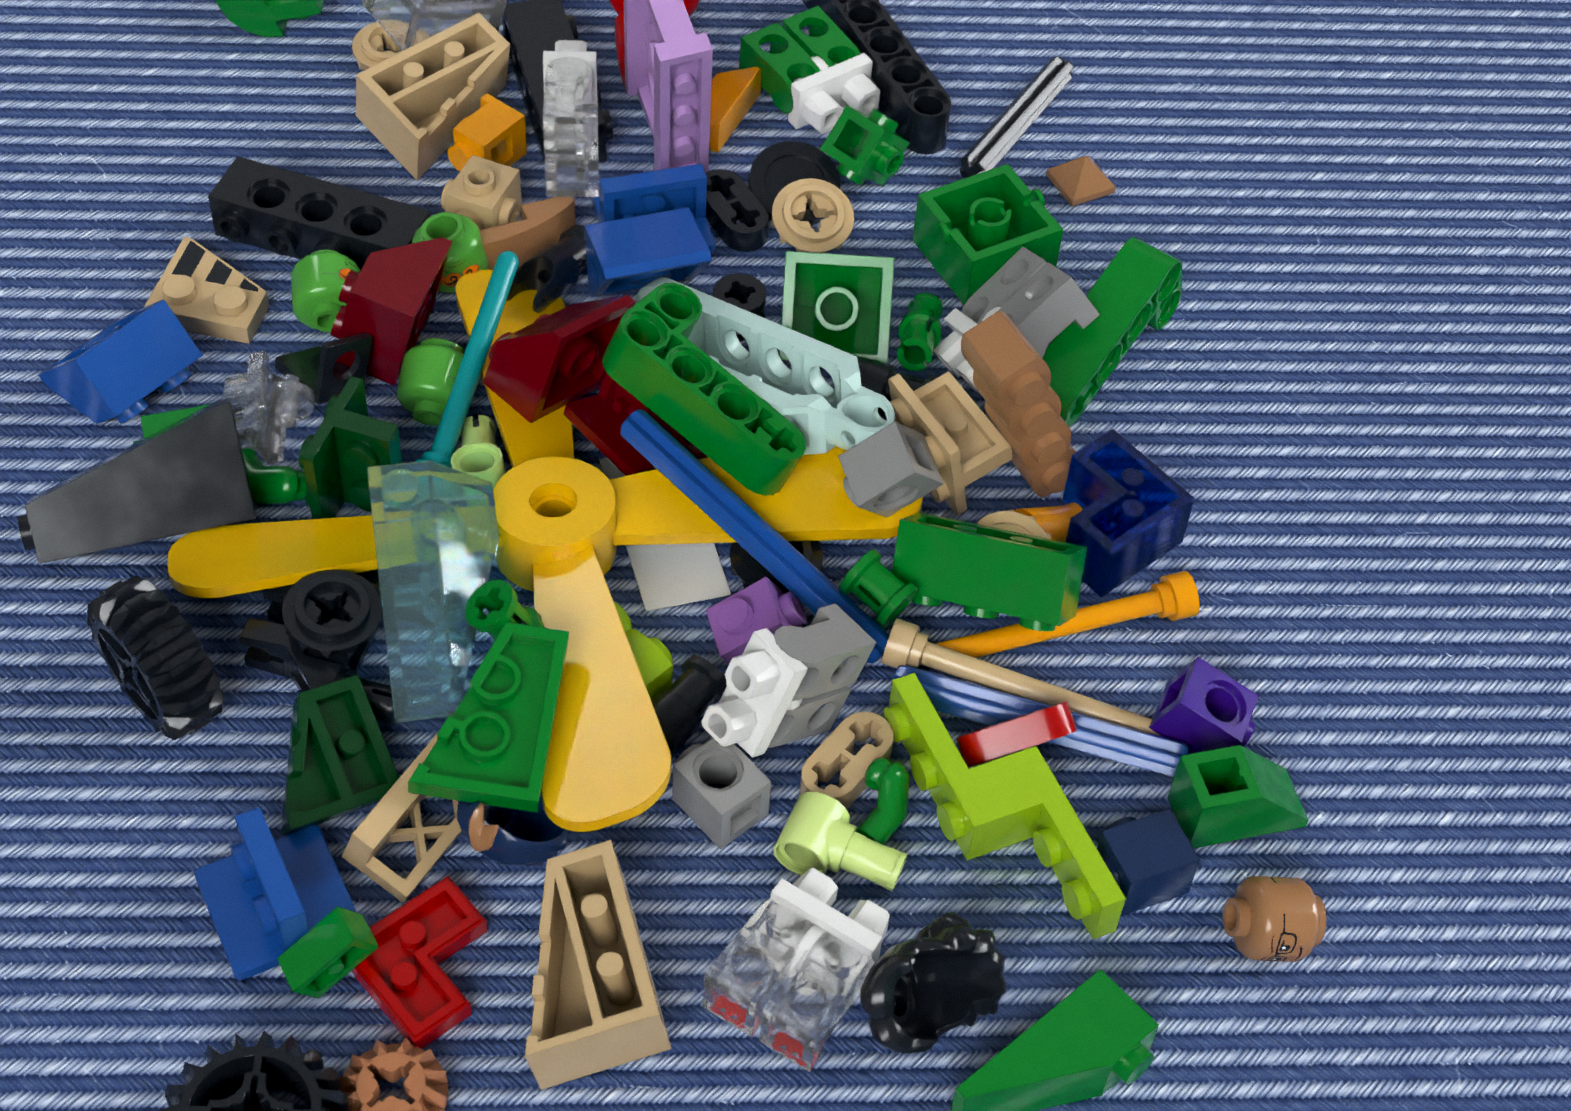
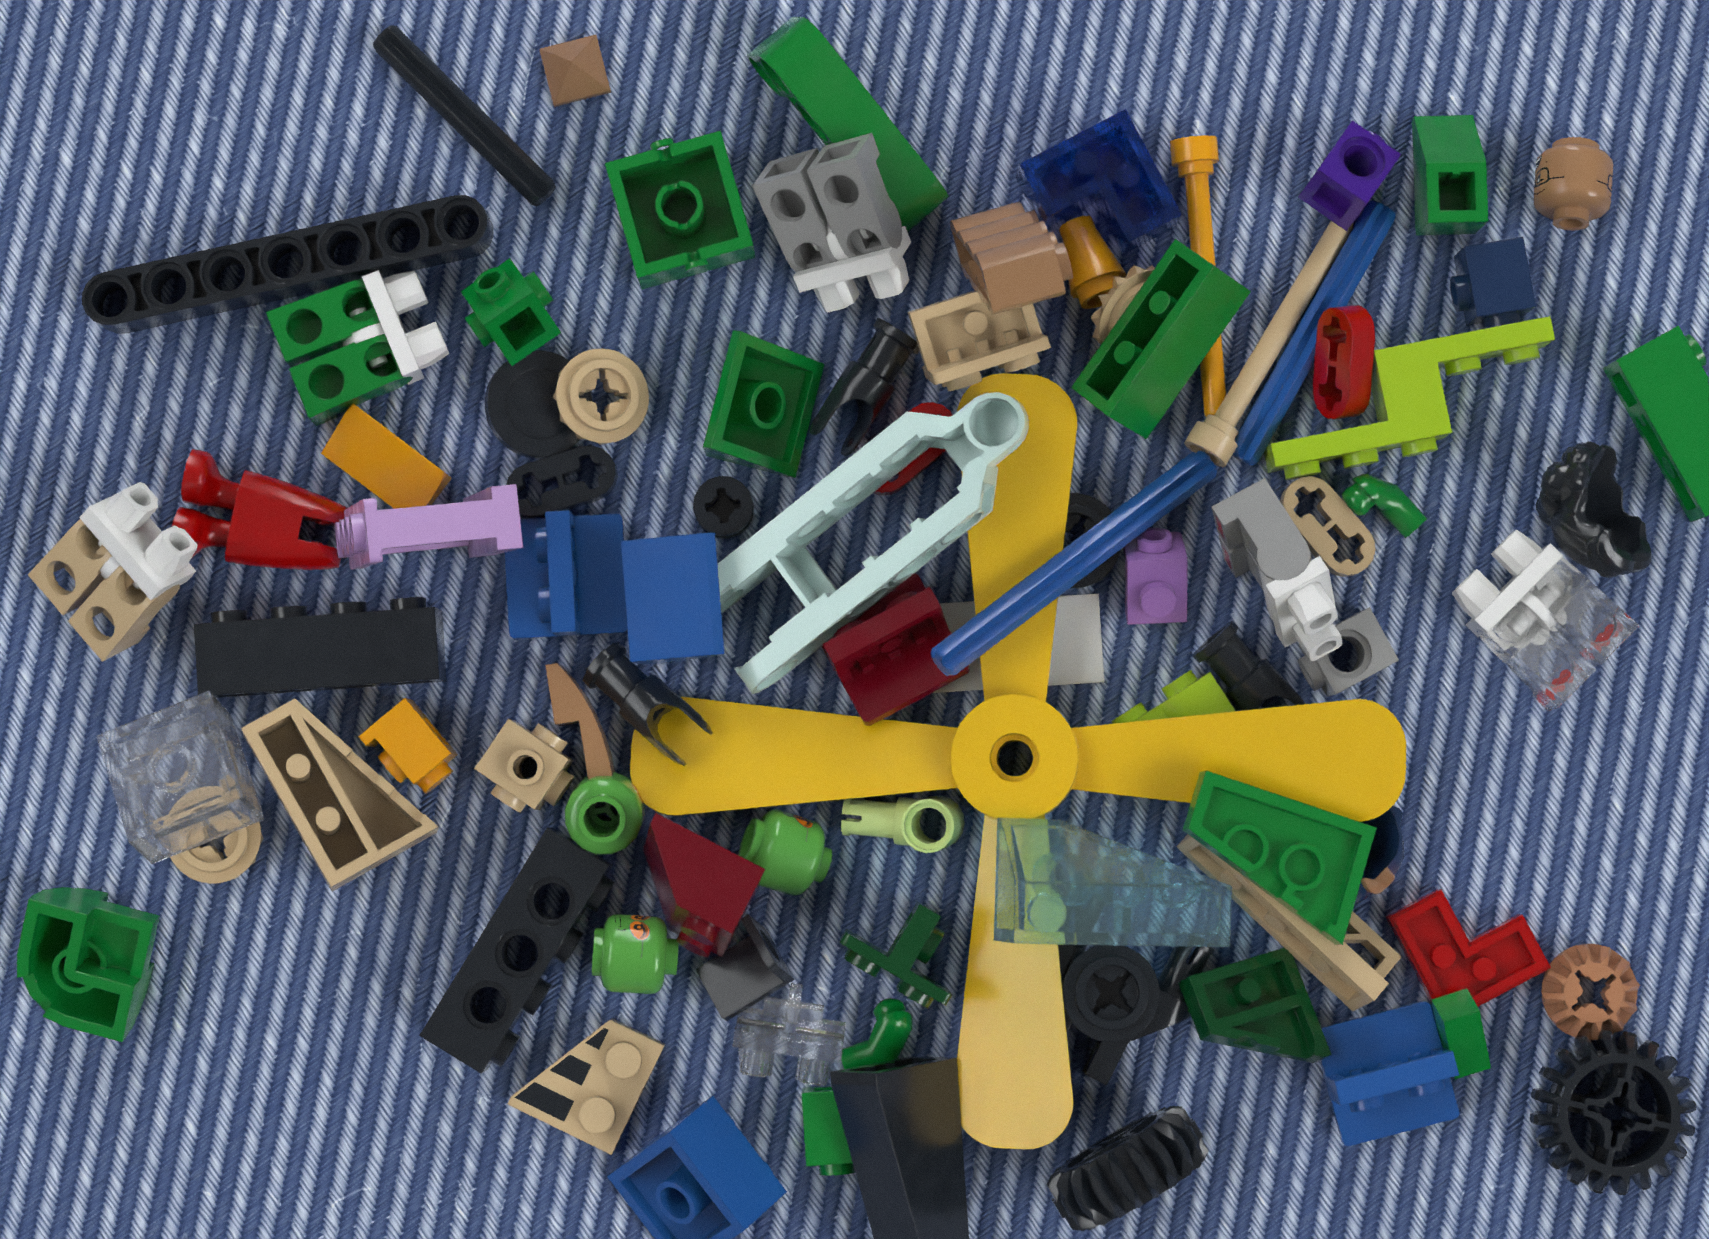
camera: 75 degrees left, 35 degrees up
(473, 360) = (907, 868): teal piece -> none
(502, 604) = (1155, 828): green bush -> none
(554, 357) = (810, 722): dark red slope -> none
(571, 120) = (456, 648): clear hips -> none
(593, 974) = (1528, 801): tan wedge -> none
(697, 395) = (932, 579): green beam -> none
(823, 839) = (1415, 569): yellowish green pin -> none
(878, 588) = (1160, 452): green bush -> none
(889, 470) = (1054, 409): light grey brick -> none
(920, 331) = (806, 320): green pin -> none

